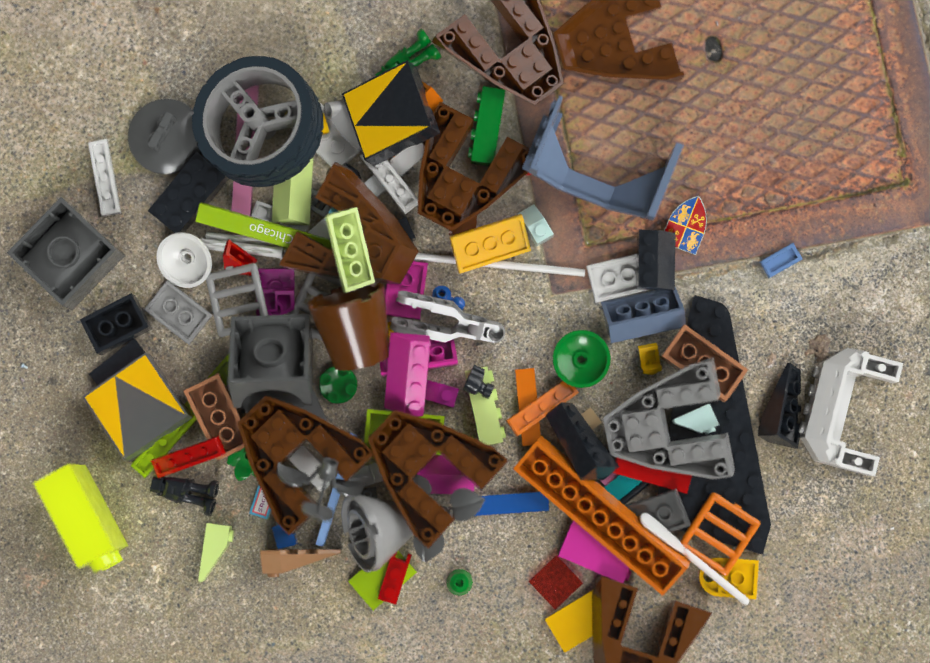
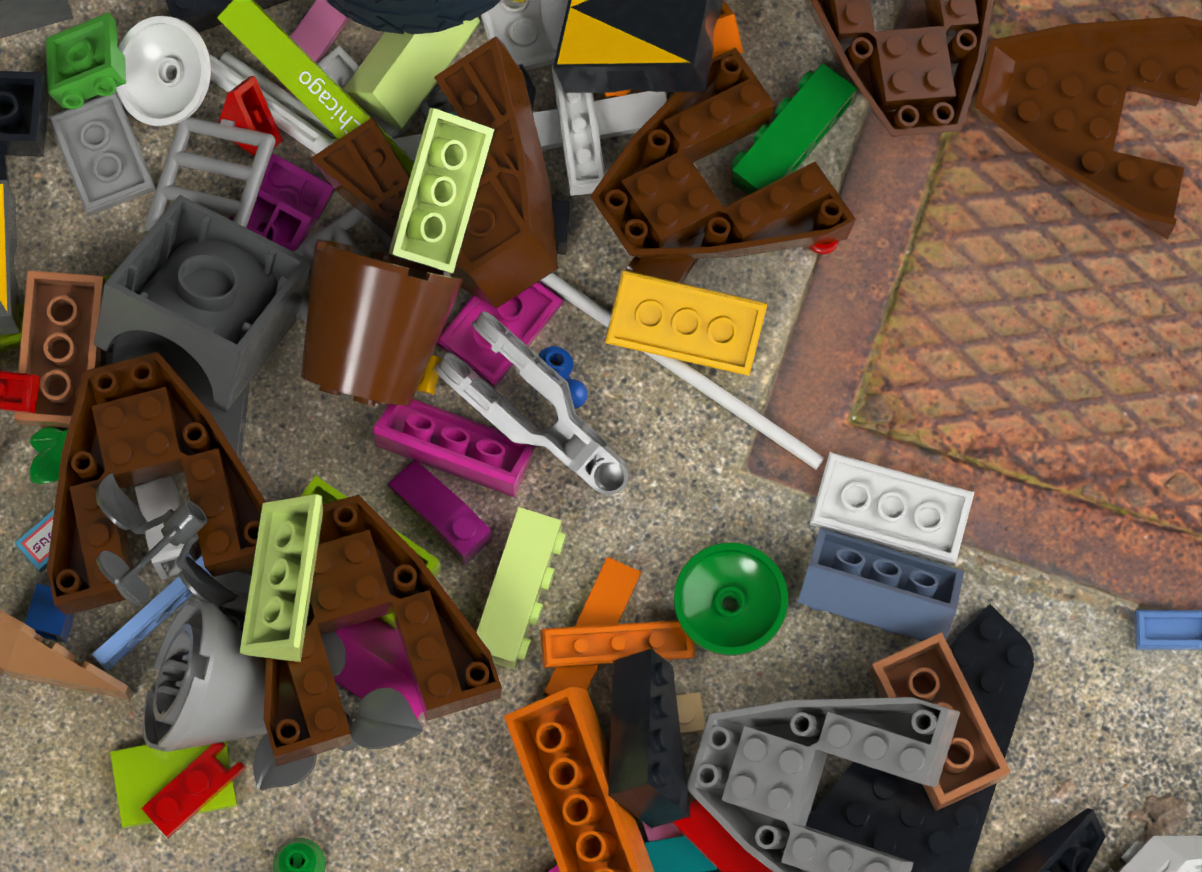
camera: 25 degrees right, 10 degrees down
(145, 275) = (84, 62): none -> bright green plate
(338, 385) = (293, 415): green dish -> none
(385, 469) = (282, 578): none -> yellowish green slope
(407, 373) = (418, 449): dark pink slope -> none
(476, 385) = (523, 534): black piece -> none
(514, 503) = (465, 780): blue tile -> none
(536, 225) = (782, 340): light aqua slope -> none
(635, 198) = (859, 237): sand blue panel -> none
(649, 358) = (849, 666): yellow bracket -> none
(655, 260) = (954, 505): black slope -> none
(689, 224) = (1040, 479): shield -> none
(698, 420) = (874, 815): light aqua slope -> none

